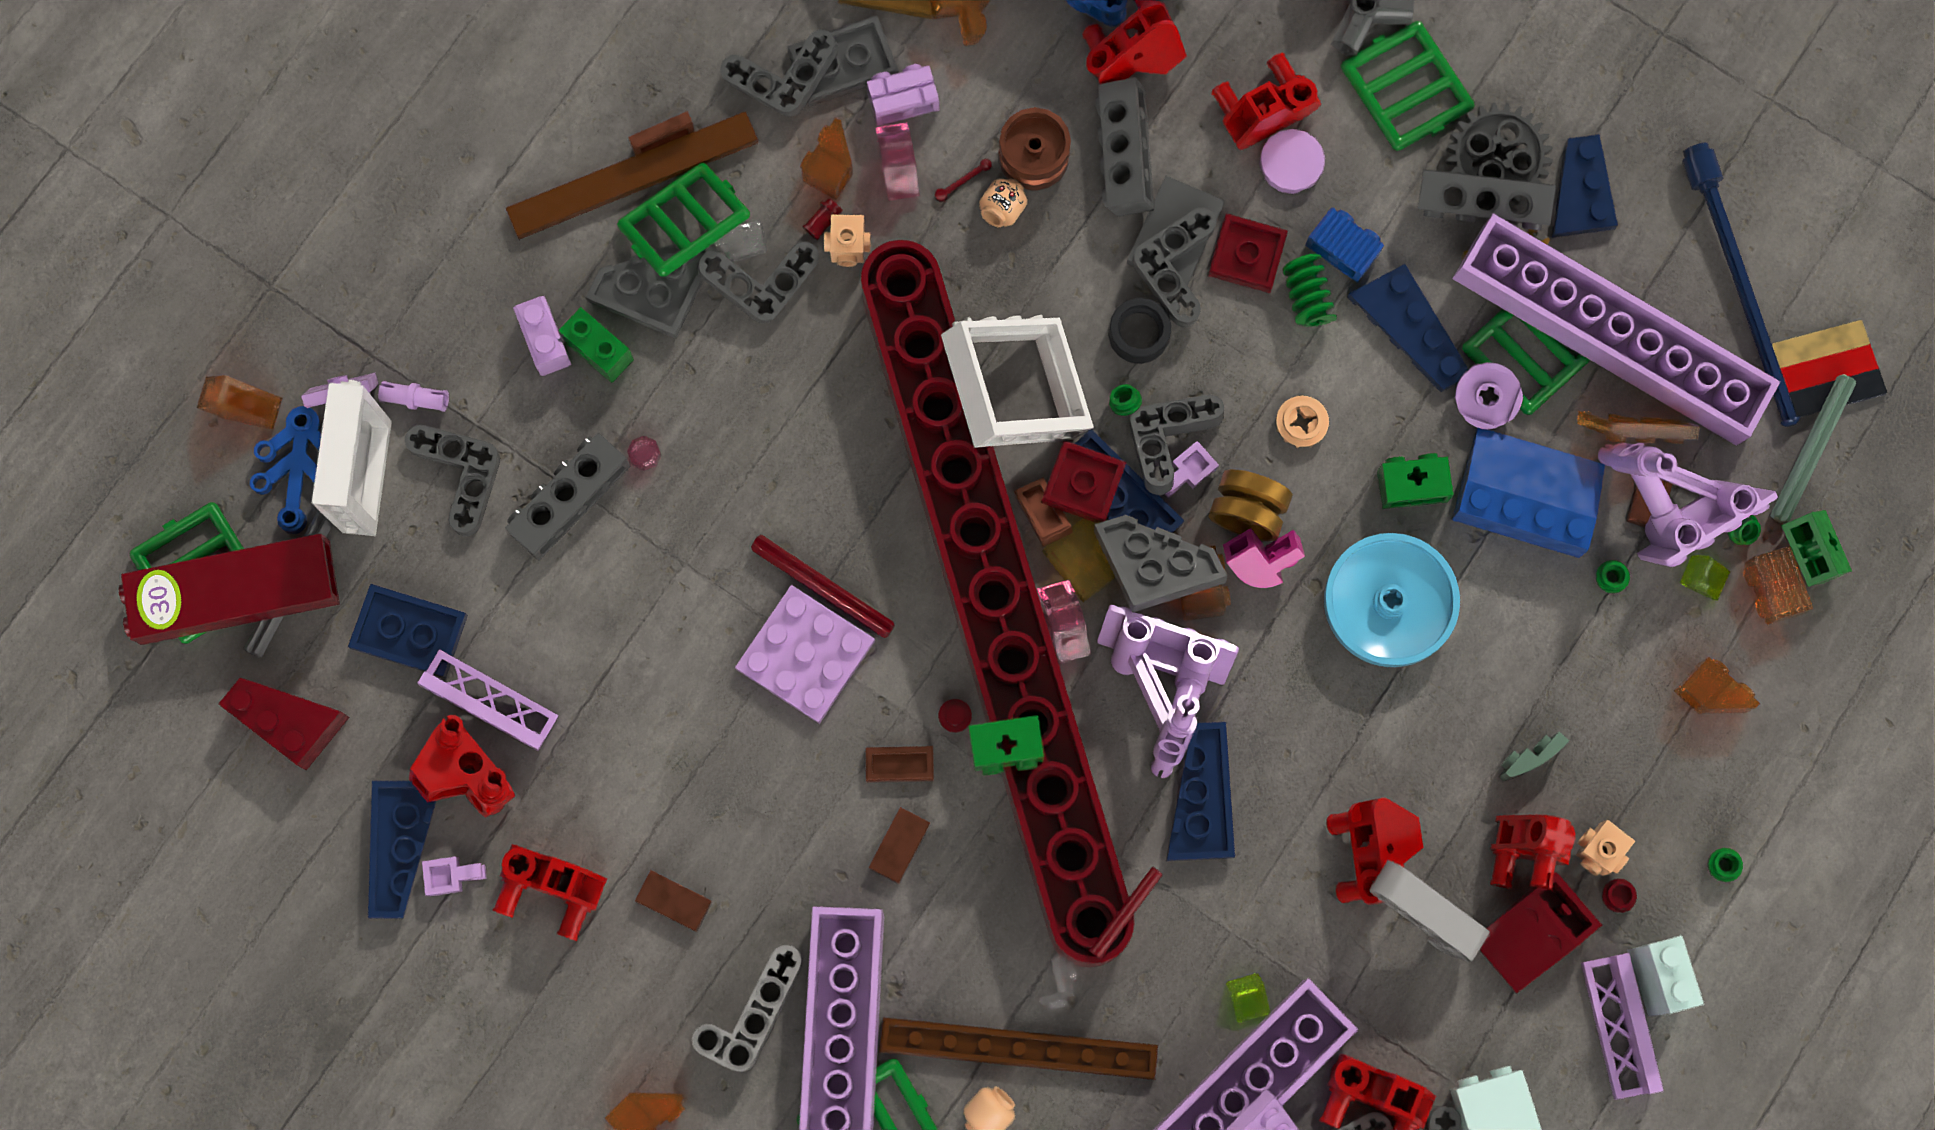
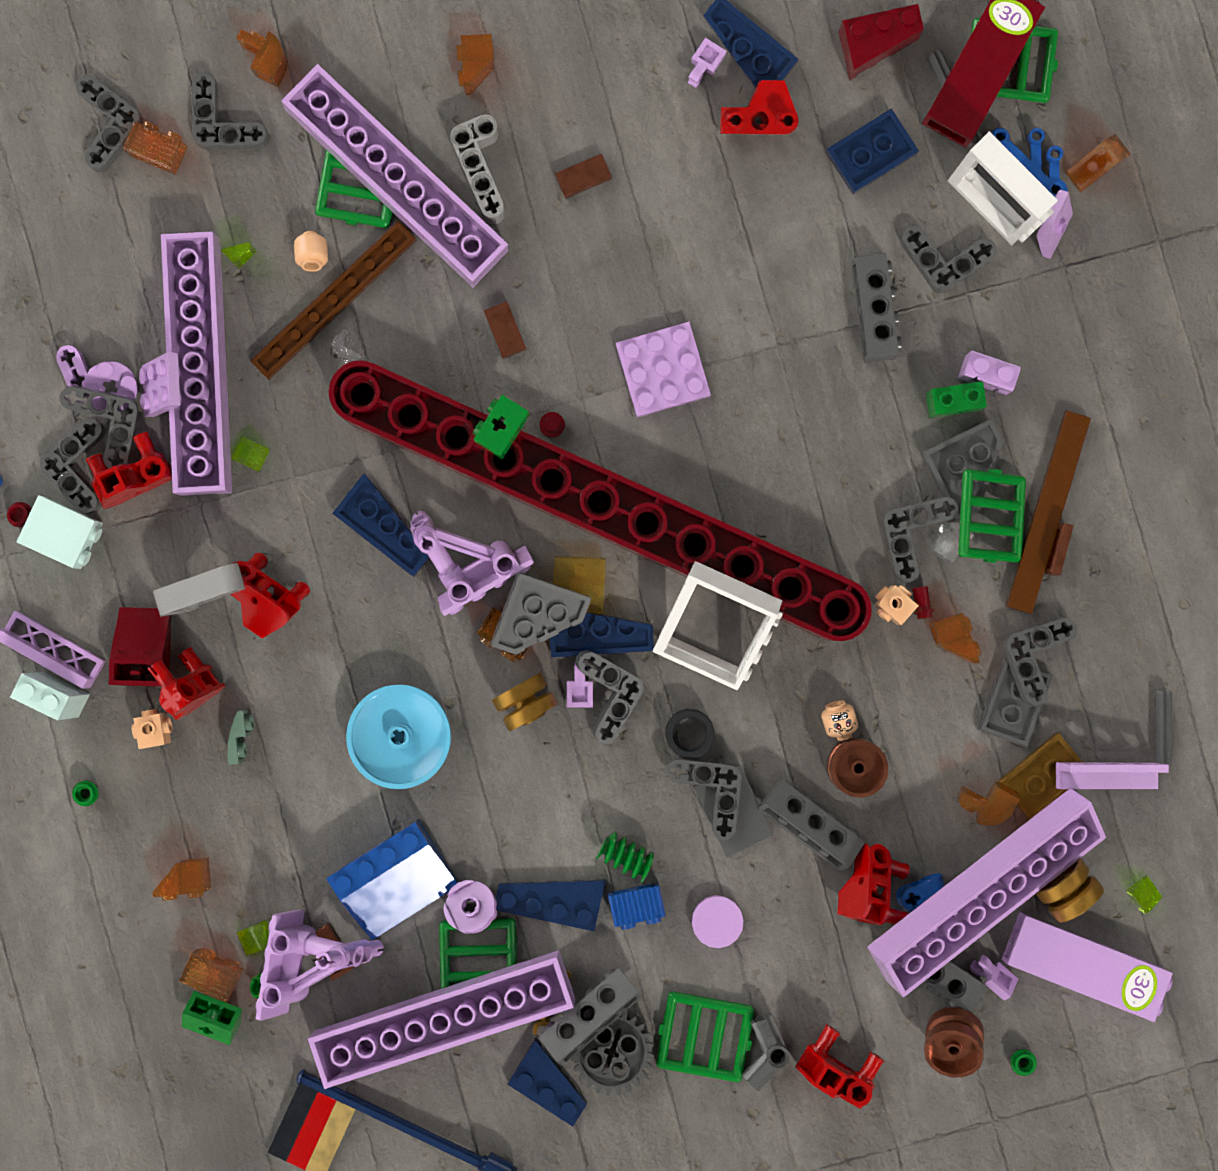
camera: 135 degrees right, 10 degrees up
(413, 396) = (1015, 268): lavender pin -> none
(482, 711) = (786, 152): lavender fence -> none
(544, 876) = (659, 111): red piece -> none
(644, 453) = (865, 376): clear pink tile -> none
(822, 586) = (694, 413): dark red axle -> none
(898, 161) = (921, 678): clear pink brick -> none
(899, 764) = (551, 369): copper tile -> none
(902, 94) = (961, 718): lavender brick -> none
(941, 194) = (877, 689): dark red hinge -> none
(1047, 522) = (628, 578): copper tile -> none
(1065, 621) = (552, 534): clear pink brick -> none
(1083, 482) = (623, 615): dark red tile -> none
(1125, 400) = (659, 690): green plate -> none
(1126, 912) = (347, 414): dark red bar -> none
(1248, 253) = (682, 842): dark red tile -> none
(1252, 122) = (760, 942): red piece -> none
(1261, 564) = (485, 678): dark pink brick -> none
(1308, 408) = (539, 786): light nougat gear -> none
(1400, 492) = (444, 823): green brick -> none
(1619, 570) = (297, 888): green plate -> none
(1619, 895) = (121, 716): dark red plate -> none
(1646, 431) = (367, 983): clear orange wing -> none
(1813, 449) = (272, 1075): sand green axle -> none

